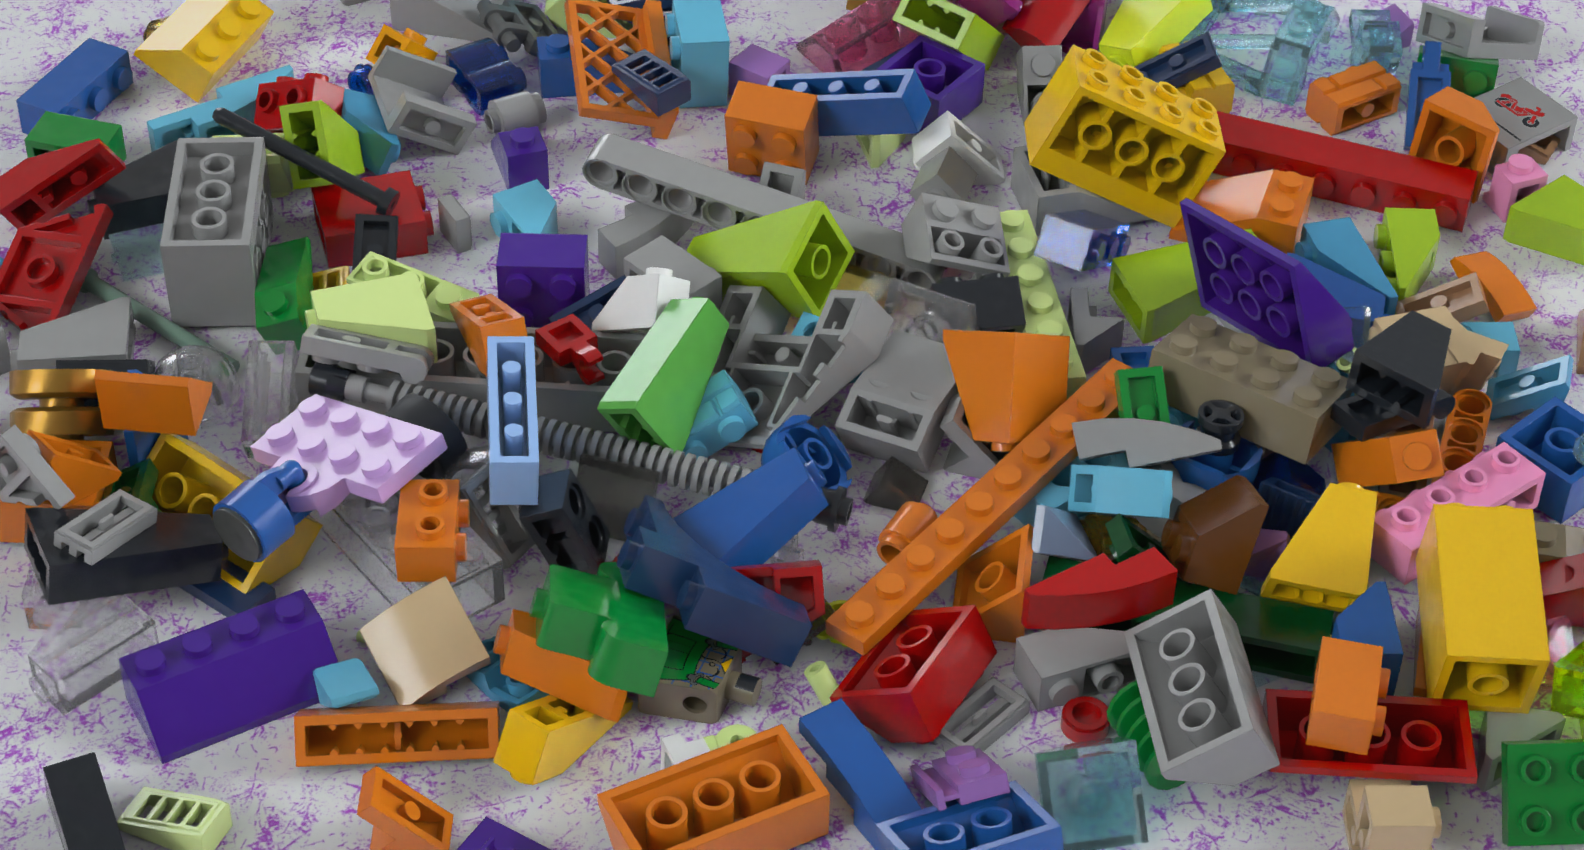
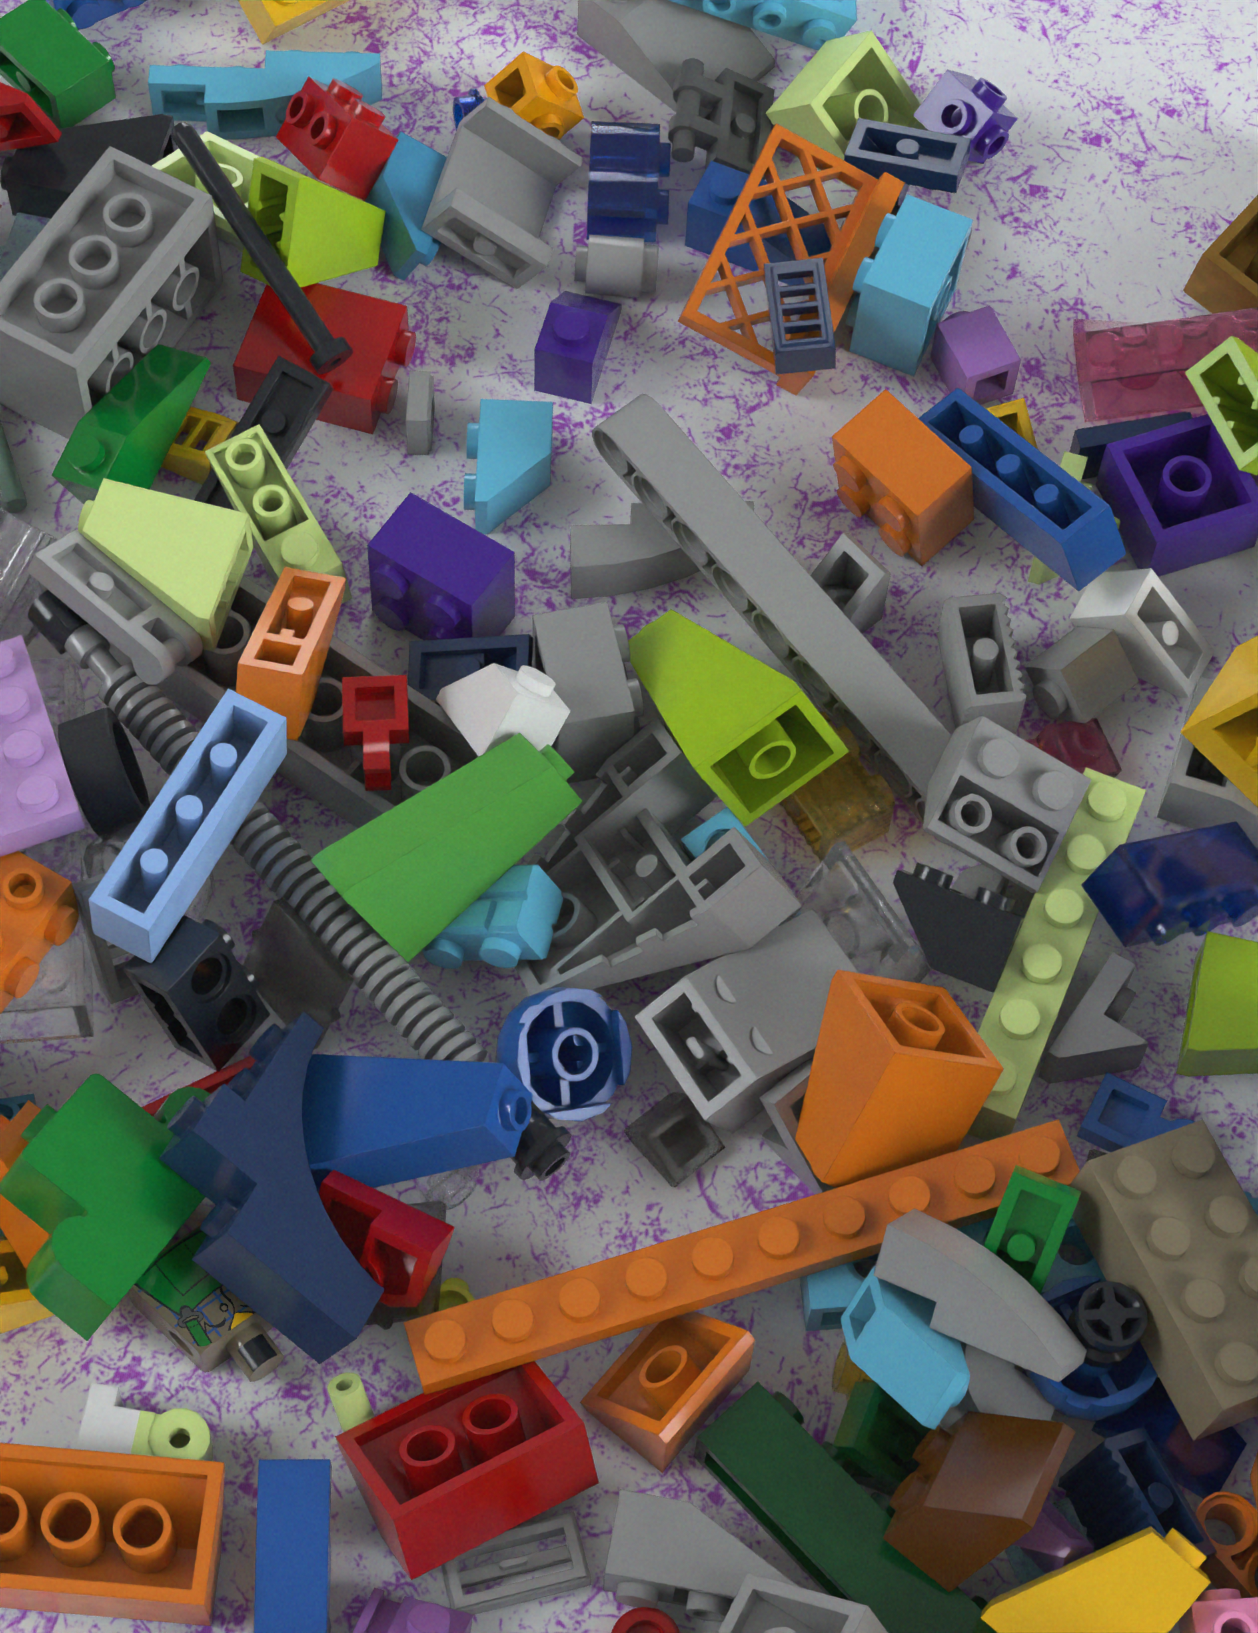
camera: 30 degrees right, 20 degrees up
(879, 193) = (981, 660): none -> light grey brick
(903, 528) = (626, 1223): orange brick -> none
(1060, 535) = (791, 1364): sand blue slope -> none
(1100, 592) = (758, 1498): red slope -> none

